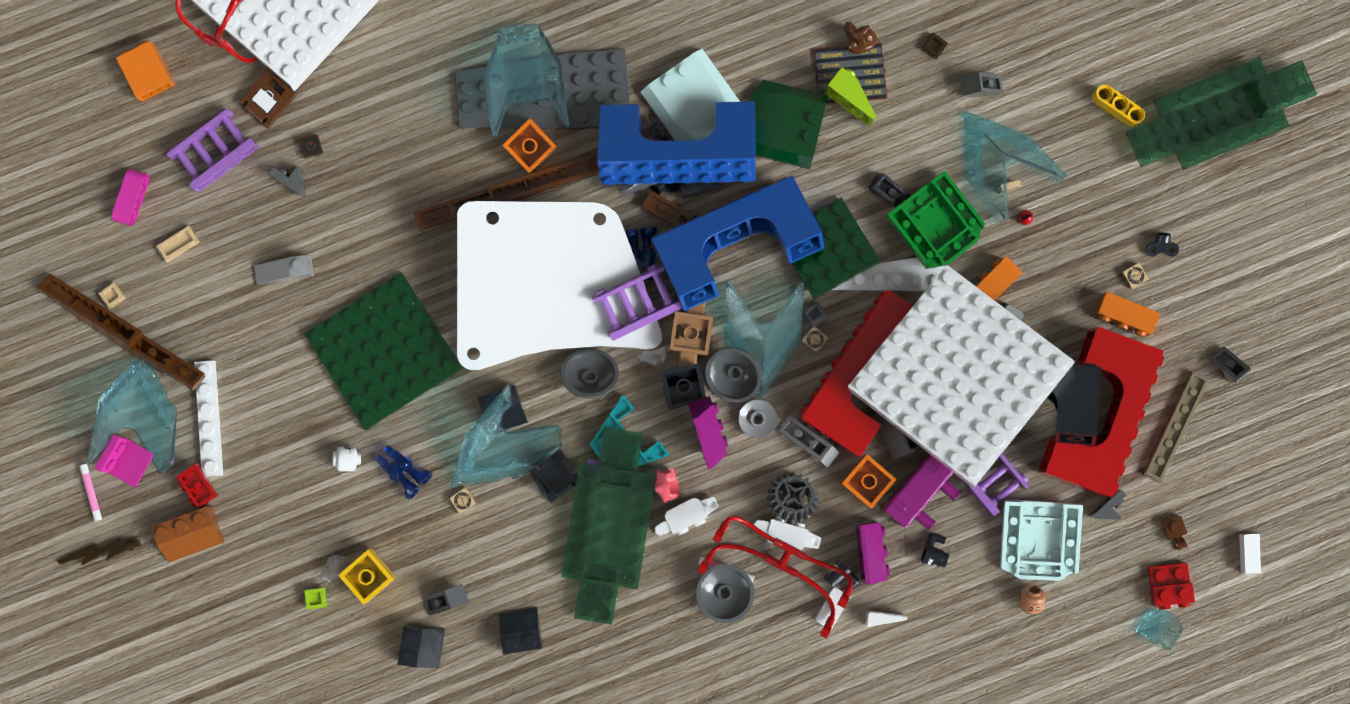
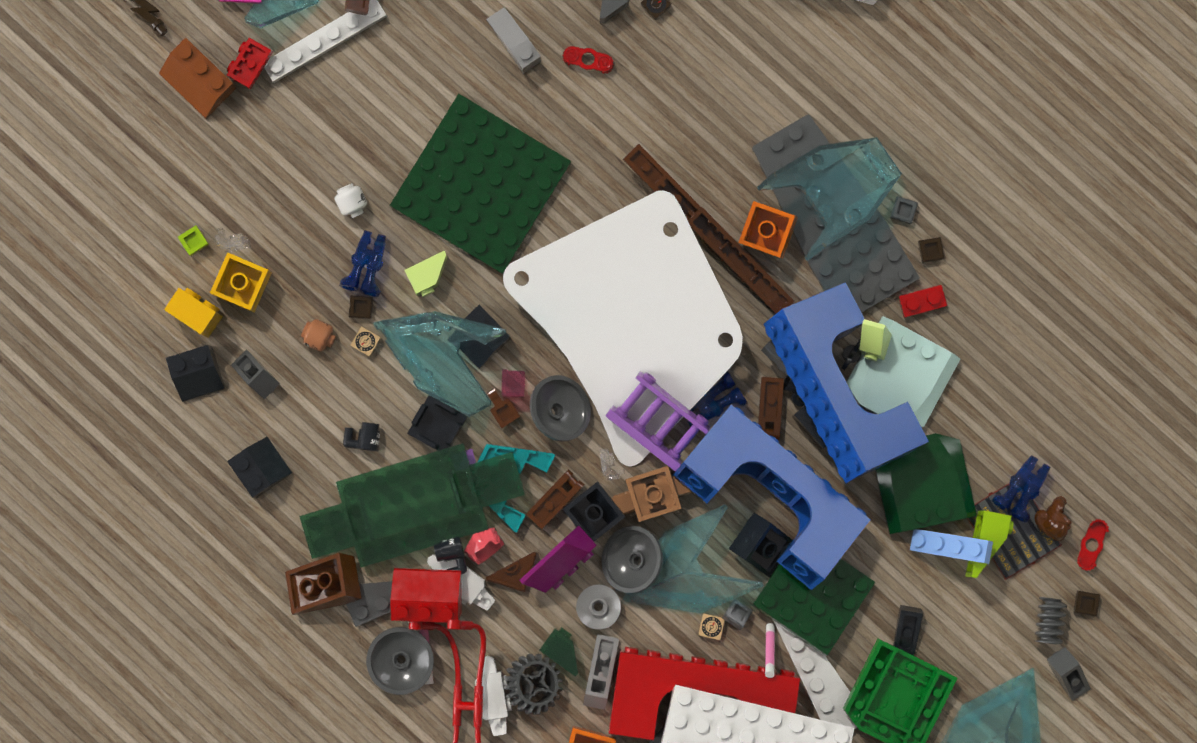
camera: 65 degrees right, 0 degrees up
(336, 210) = (602, 61): none -> red piece
(368, 627) = (192, 312): none -> yellow brick
(433, 427) = (427, 274): none -> yellowish green slope
(434, 491) = (360, 307): none -> dark brown tile
(439, 535) = (318, 335): none -> nougat head
(539, 535) = (367, 439): none -> black piece
(552, 401) = (513, 383): none -> clear pink panel
(566, 35) = (904, 210): none -> dark grey tile
(570, 419) = (504, 410): none -> reddish brown plate
(607, 30) = (931, 250): none -> dark brown tile
(636, 624) = (323, 584): none -> reddish brown slope
(643, 56) = (922, 301): none -> red plate
(656, 105) = (874, 340): none -> yellowish green slope
(658, 413) = (554, 500): none -> reddish brown plate
(658, 513) = (451, 550): none -> black piece
(668, 589) = (374, 602): none -> dark grey wing
(684, 548) = (426, 595): none -> red slope
(700, 472) = (511, 574): none -> reddish brown tile
(770, 270) = (760, 544): none -> black slope
(777, 463) = (561, 650): none -> clear green slope
(823, 43) = (1025, 481): none -> clear blue piece
(842, 124) = (951, 546): none -> light blue plate
(855, 302) = (770, 650): none -> bright pink bar
(883, 11) = (1096, 530): none -> red piece
(935, 78) = (1050, 620): none -> dark grey piece

